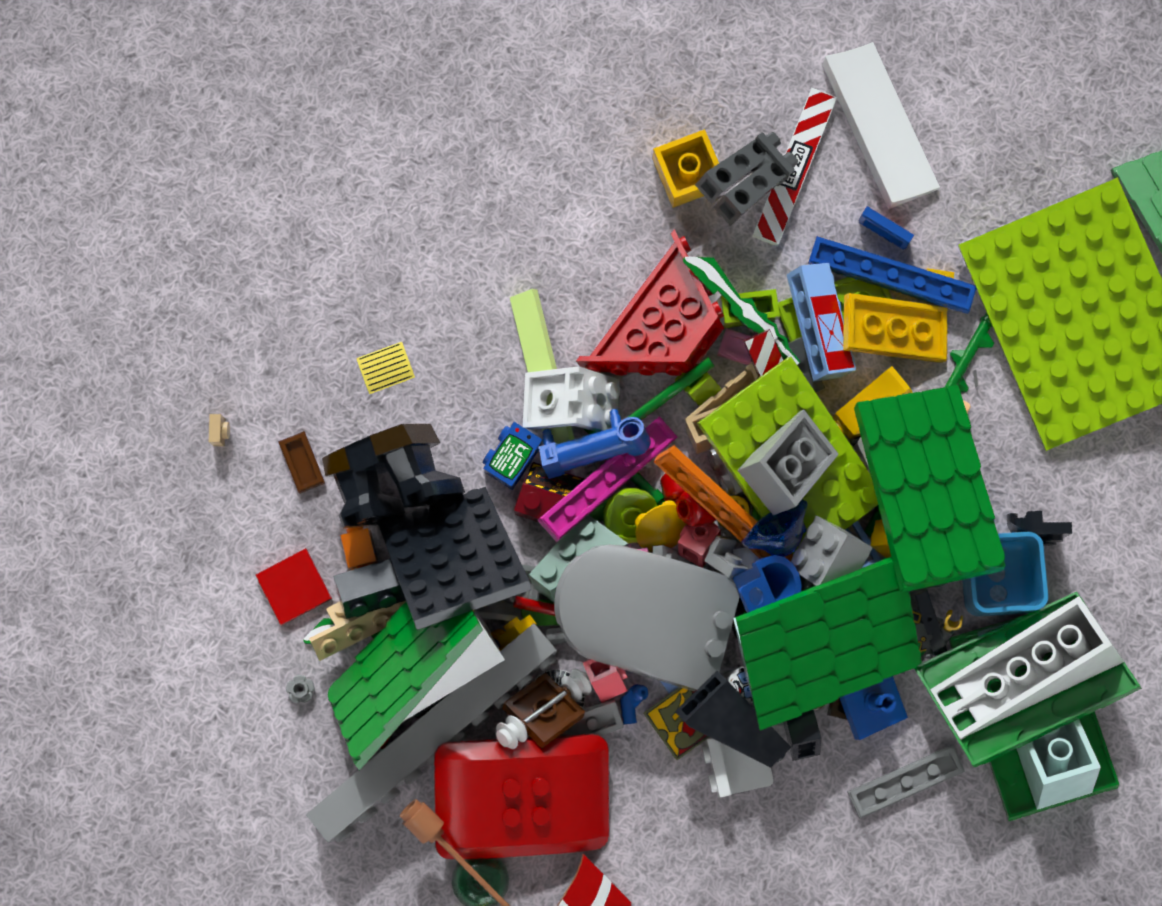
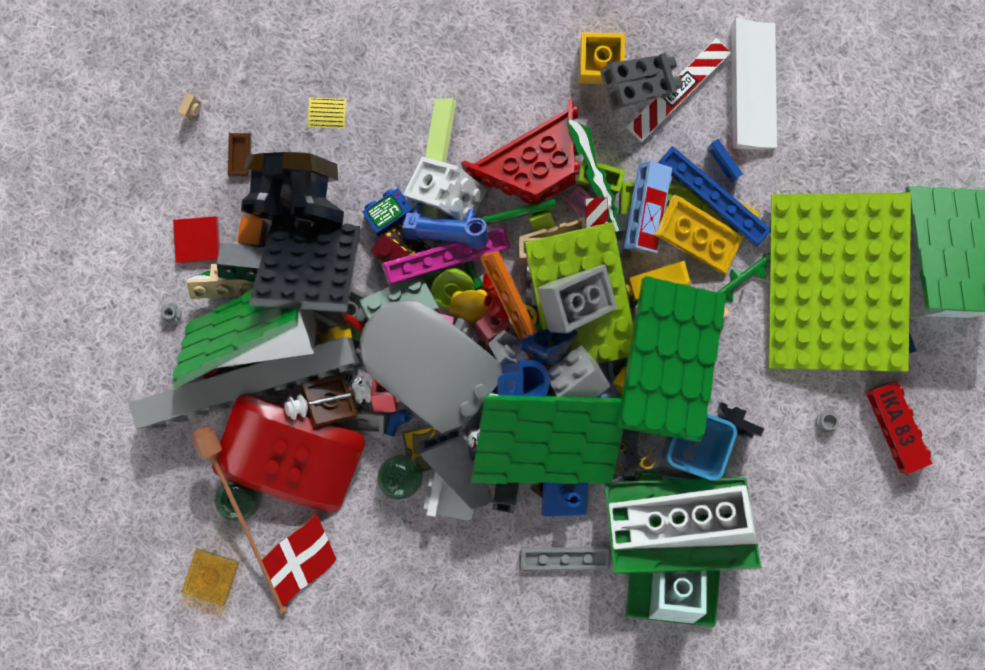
camera: 20 degrees right, 5 degrees up
(671, 757) = (399, 477): none -> clear green cylinder
(1142, 483) = (827, 421): none -> light grey plate

